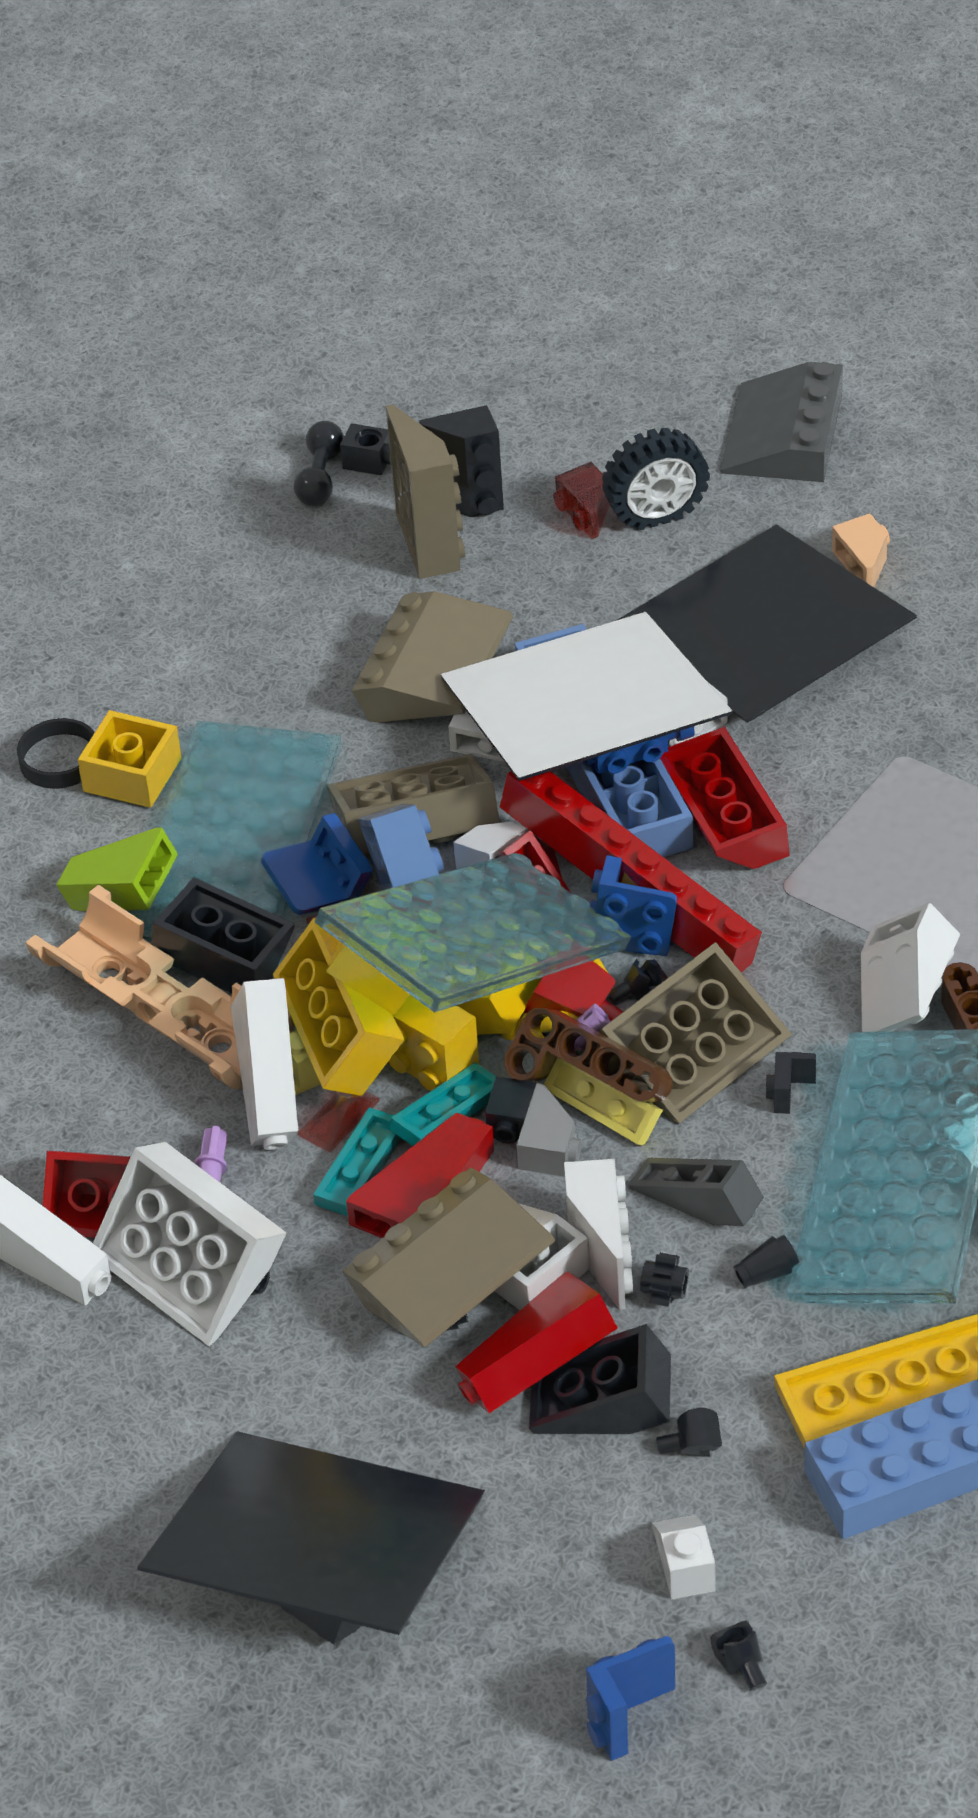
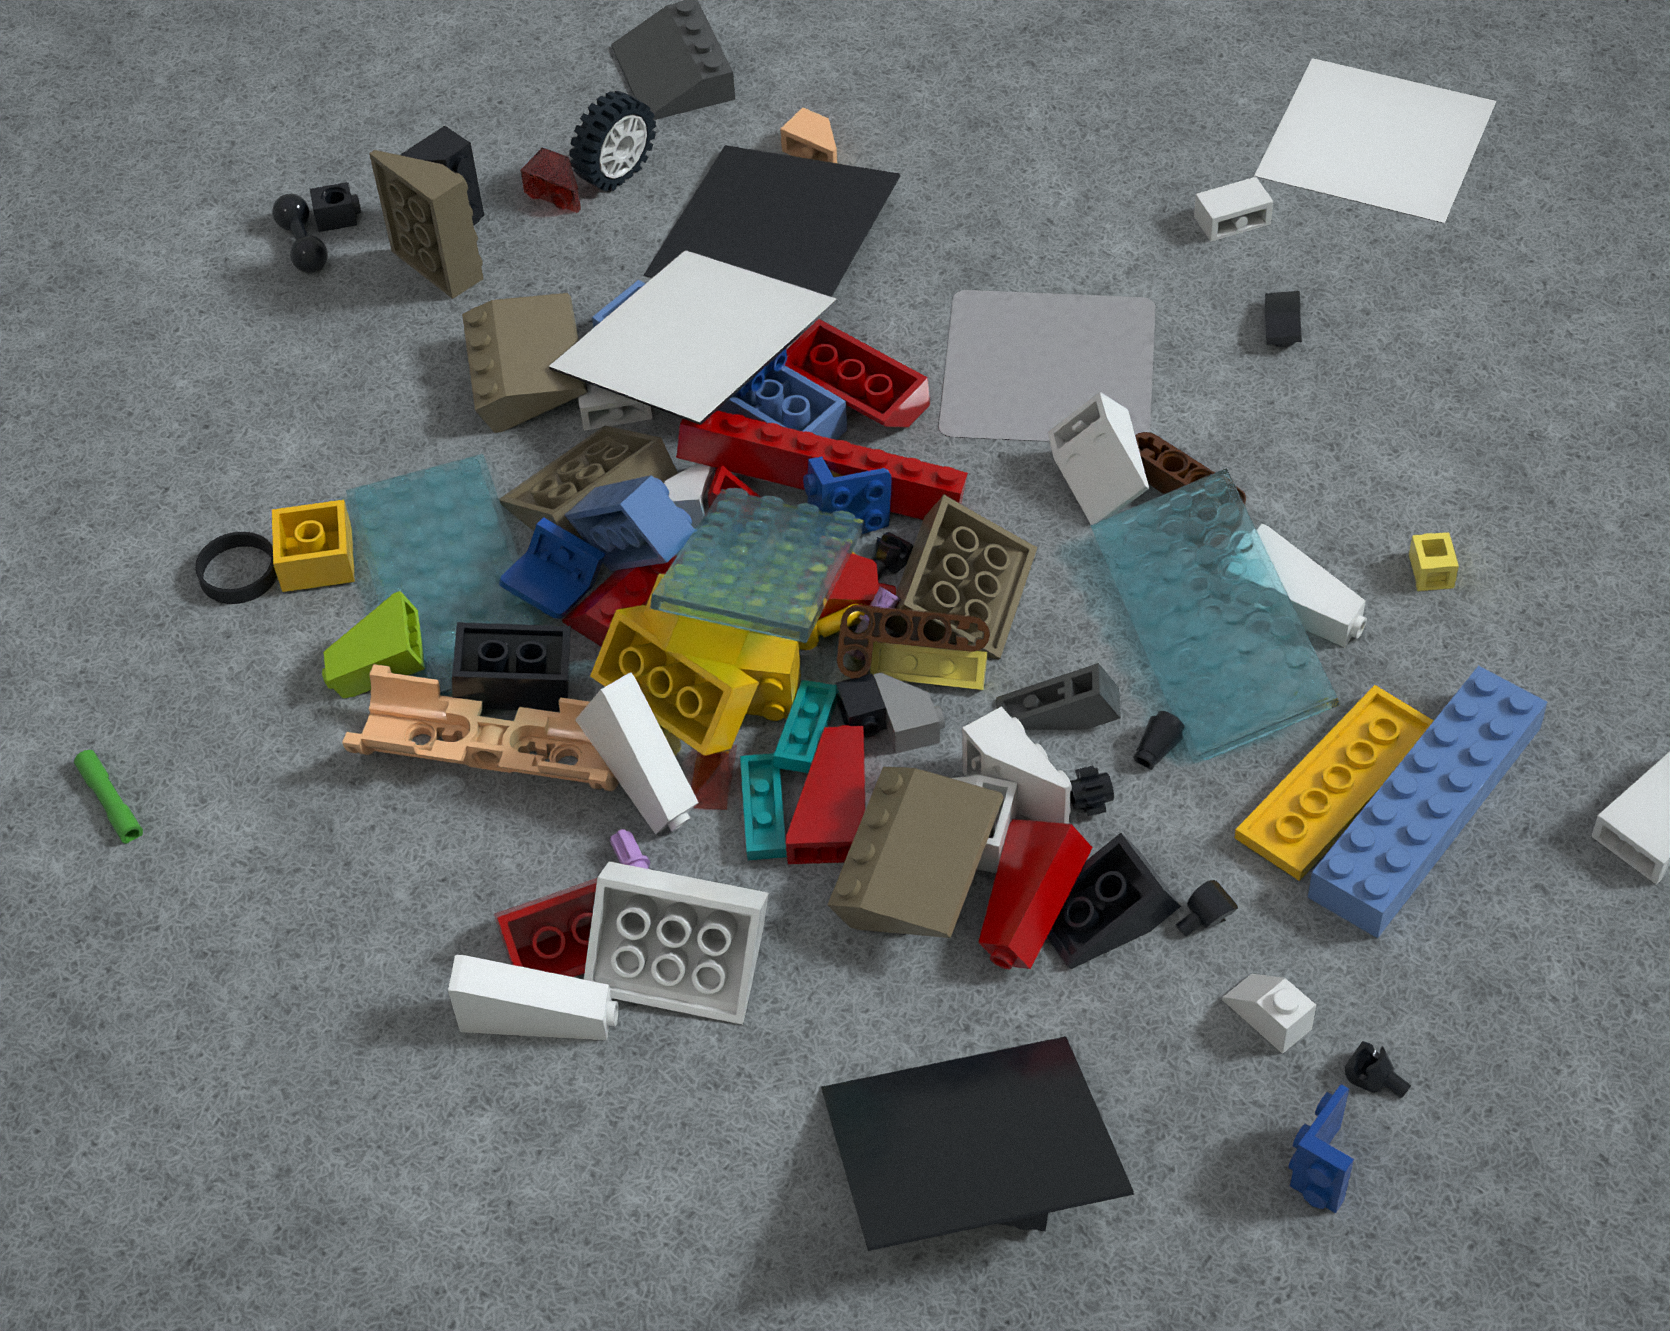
camera: 30 degrees left, 5 degrees up
(789, 1068) = (1063, 585): black bracket -> none

